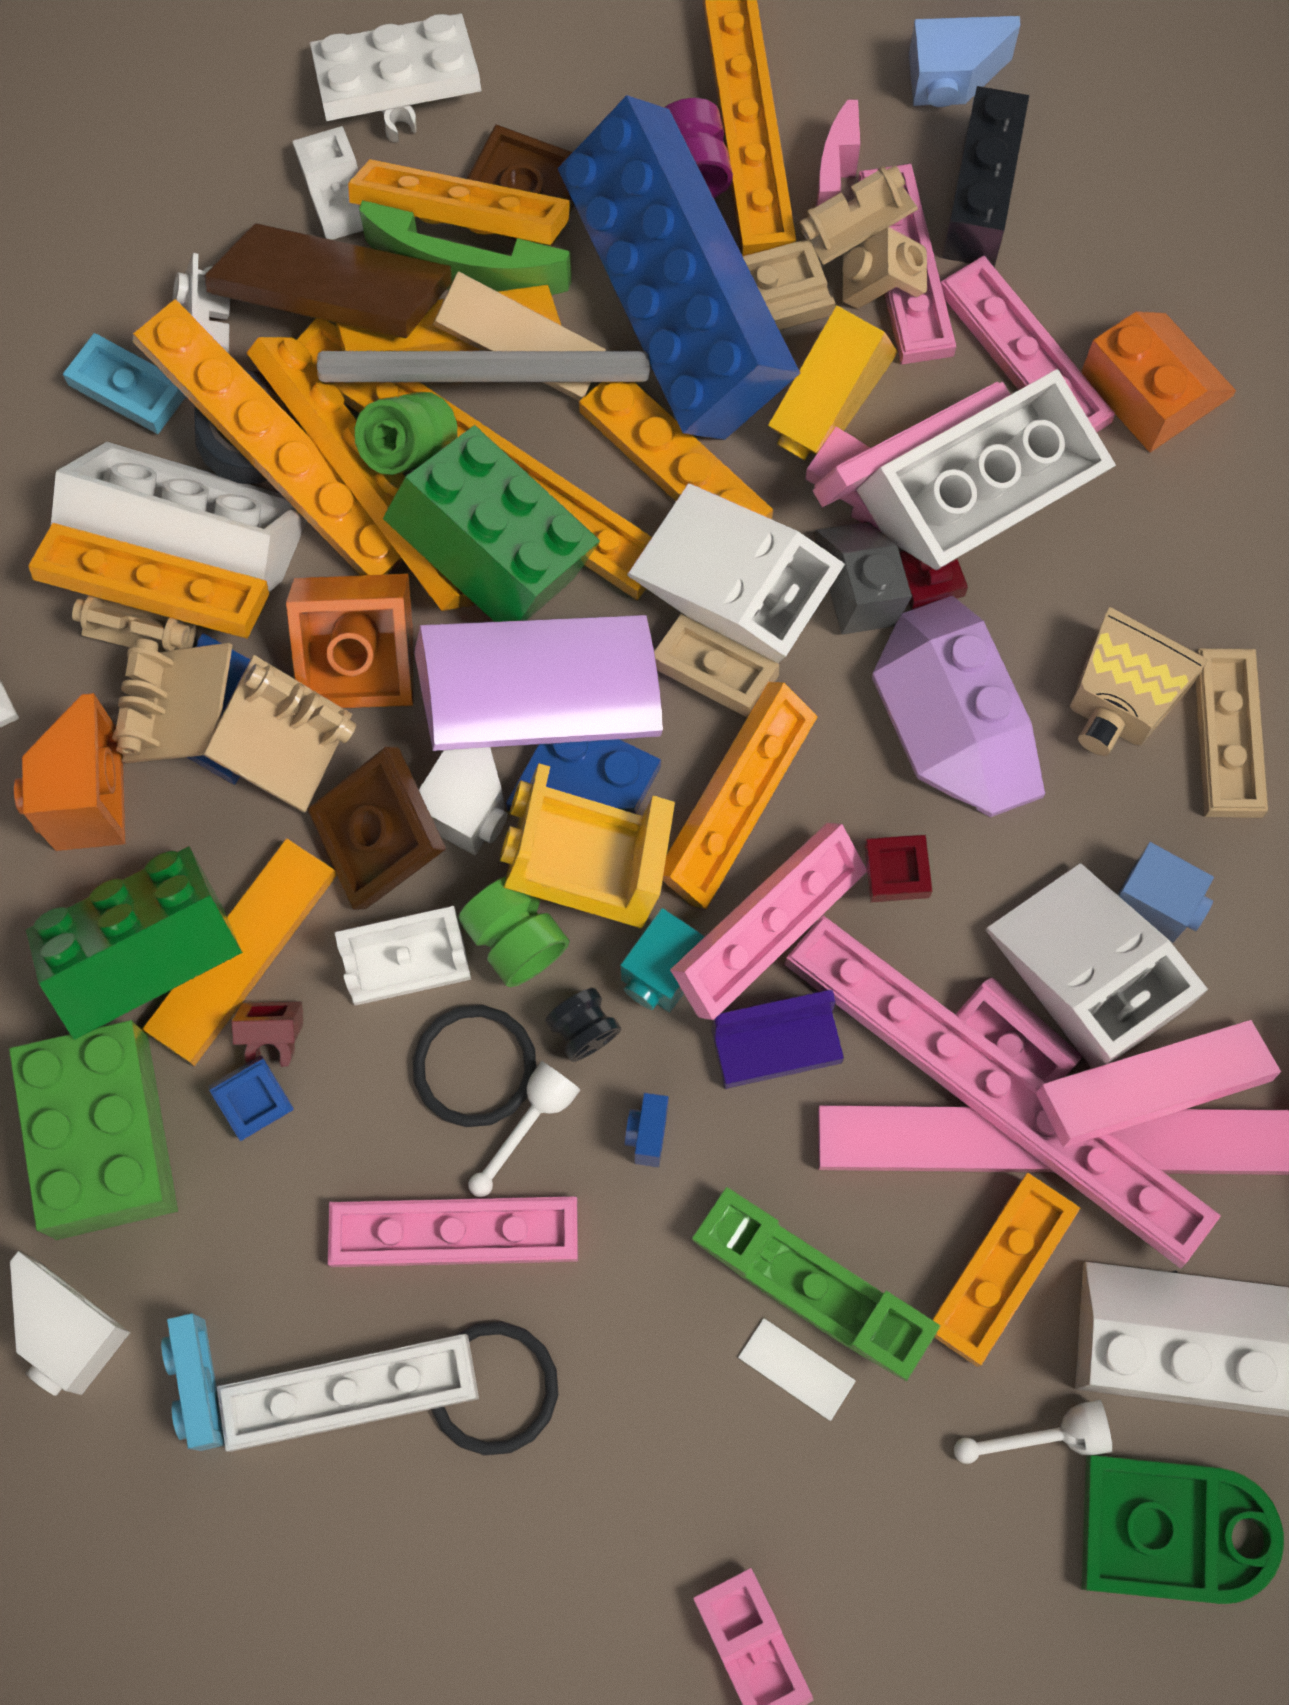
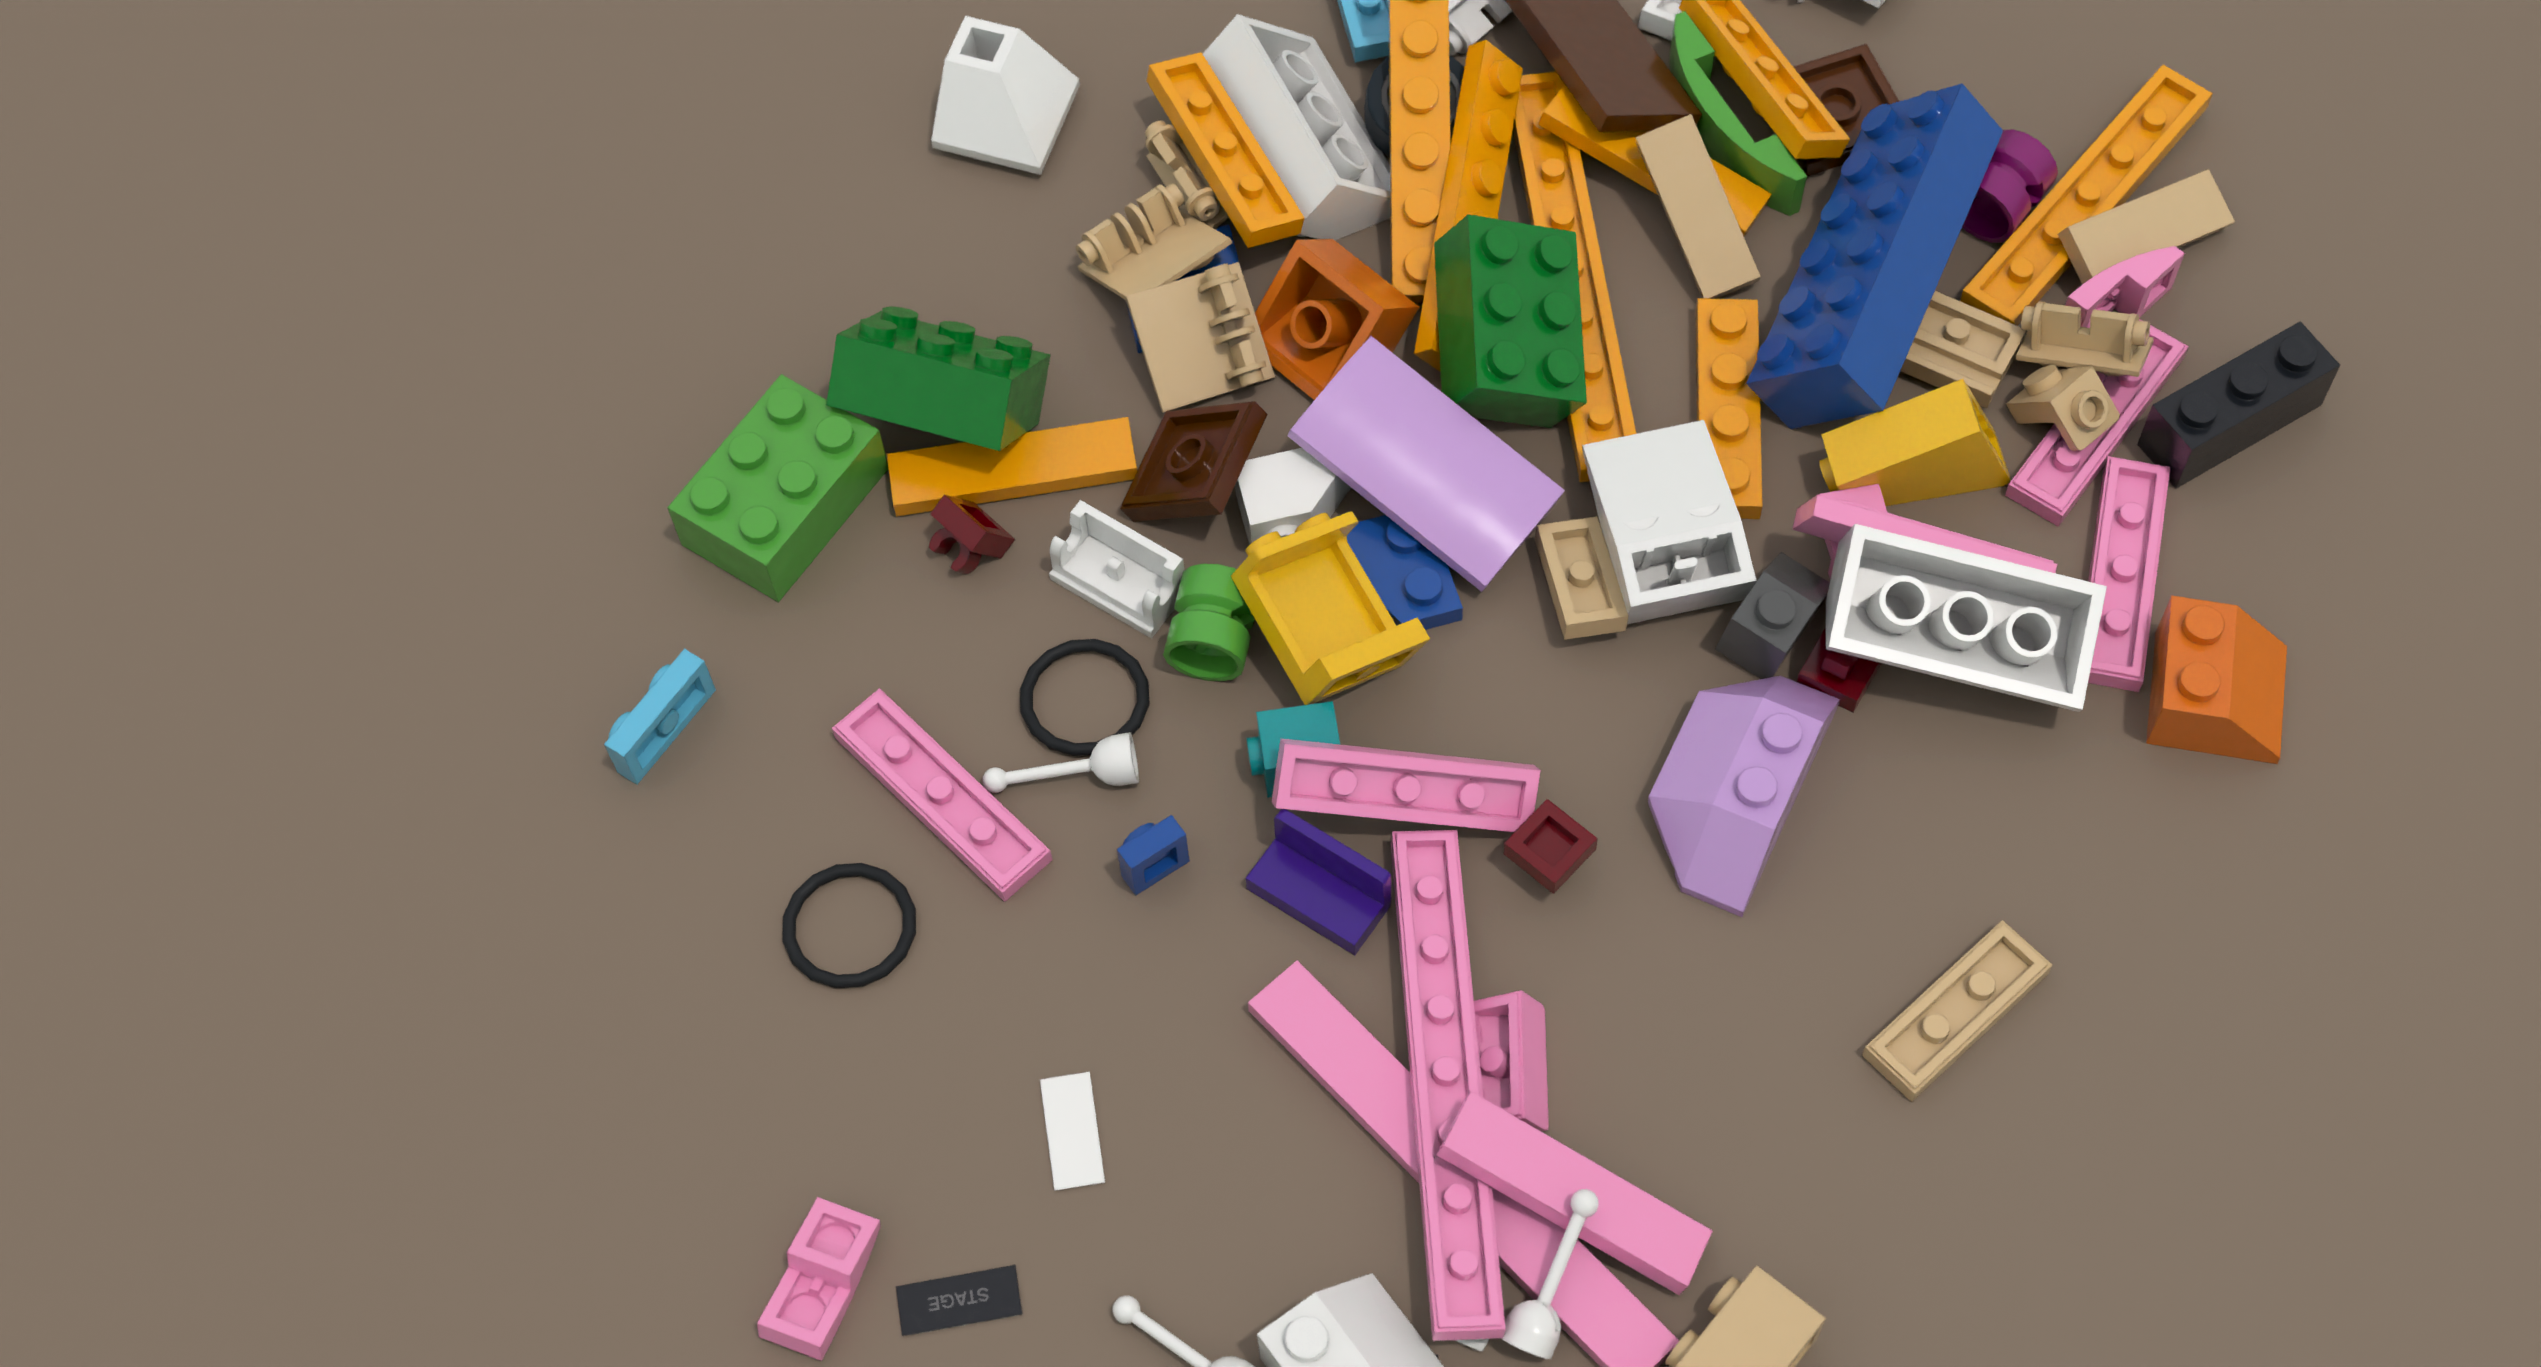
camera: 50 degrees right, 10 degrees down
(59, 1329) = (616, 595): white slope -> none
(75, 780) = (1023, 240): orange slope -> none
(250, 1097) = (906, 568): blue tile -> none
(347, 1392) = (750, 826): white tile -> none
(404, 431) = (1519, 190): bright green wheel -> none
(483, 366) = (1641, 205): light grey axle -> none
(583, 1024) = (1188, 736): black wheel -> none
(737, 794) = (1491, 683): light orange plate -> none
(808, 104) = (2149, 223): none -> tan tile
(815, 1286) = (1146, 1074): bright green slope -> none
(852, 1561) = (959, 1300): none -> black sticker
(958, 55) = (2328, 295): light blue slope -> none
(1003, 1269) = (1299, 1209): light orange plate -> none
(1096, 965) = (1626, 1067): white slope -> none
(1130, 682) = (1907, 890): tan torso -> none
(1167, 891) = (1748, 1067): medium blue brick -> none
(1218, 1188) = (1534, 1323): none -> white hinge

